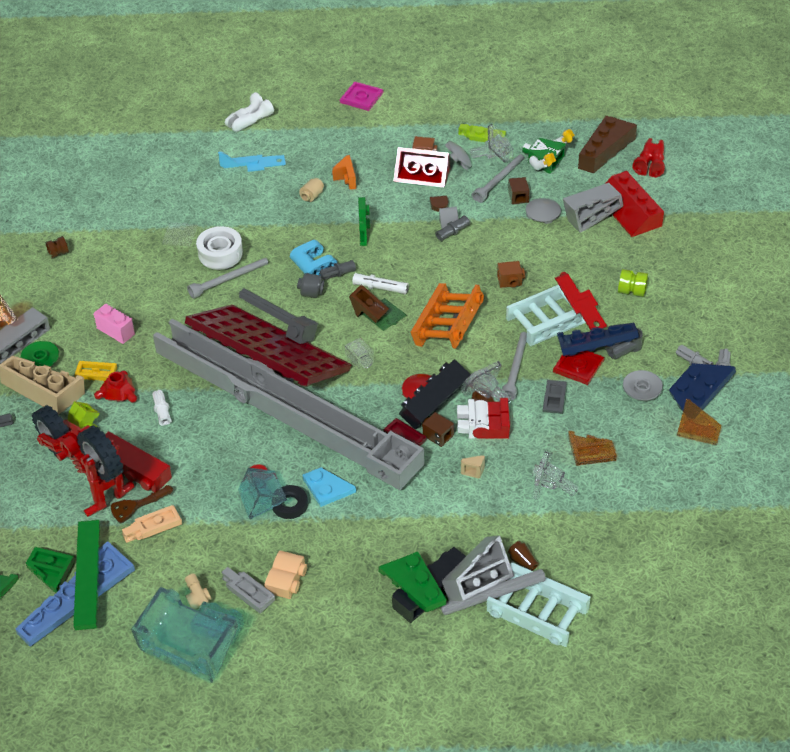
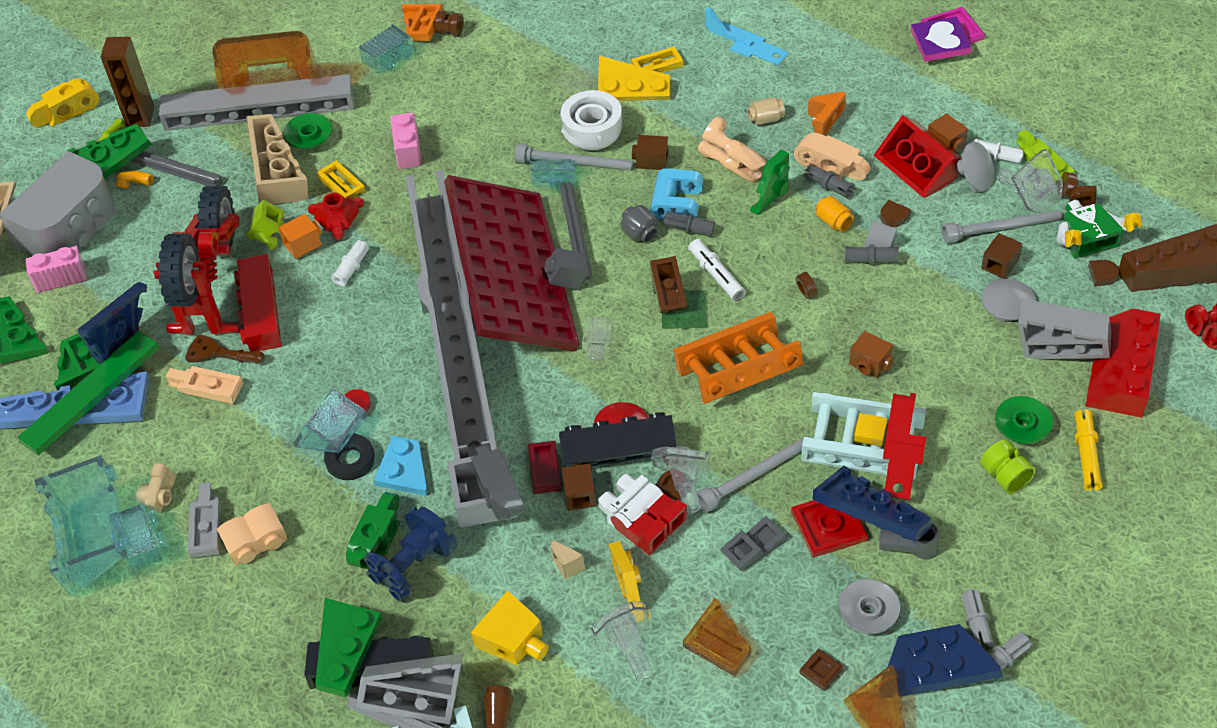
camera: 45 degrees right, 5 degrees up
(34, 256) = (420, 20): none -> orange wing
(34, 283) = (386, 49): none -> clear light blue brick
(62, 526) = (113, 324): none -> dark blue wing
(113, 411) = (300, 235): none -> orange brick
(213, 216) = (631, 81): none -> yellow wing
(217, 201) = (658, 64): none -> yellow tile
(227, 289) = (552, 173): none -> clear light blue hips
(273, 246) = (651, 152): none -> reddish brown brick
(327, 220) = (736, 157): none -> light nougat piece
(355, 524) = (374, 530): none -> green piece
(364, 102) = (940, 39): none -> tile
(378, 191) = (831, 156): none -> light nougat piece
(387, 205) = (829, 180): none -> dark grey pin
(391, 503) = (424, 537): none -> dark blue piece
(410, 219) = (834, 213): none -> light orange brick
(412, 443) = (496, 483): none -> dark grey piece
(437, 262) = (806, 285): none -> reddish brown tile
(462, 141) = (1002, 152): none -> white axle
(487, 517) = (510, 631): none -> yellow torso
(513, 138) = (1070, 182): none -> reddish brown tile
(514, 450) = (625, 570): none -> yellow wing
(526, 137) = (1084, 194): none -> reddish brown tile
(553, 306) = (870, 429): none -> yellow tile
(572, 171) = (1103, 272): none -> reddish brown tile
(615, 258) = (1027, 411): none -> green dish
(651, 429) = (821, 669): none -> reddish brown tile
(652, 250) = (1087, 440): none -> yellow pin

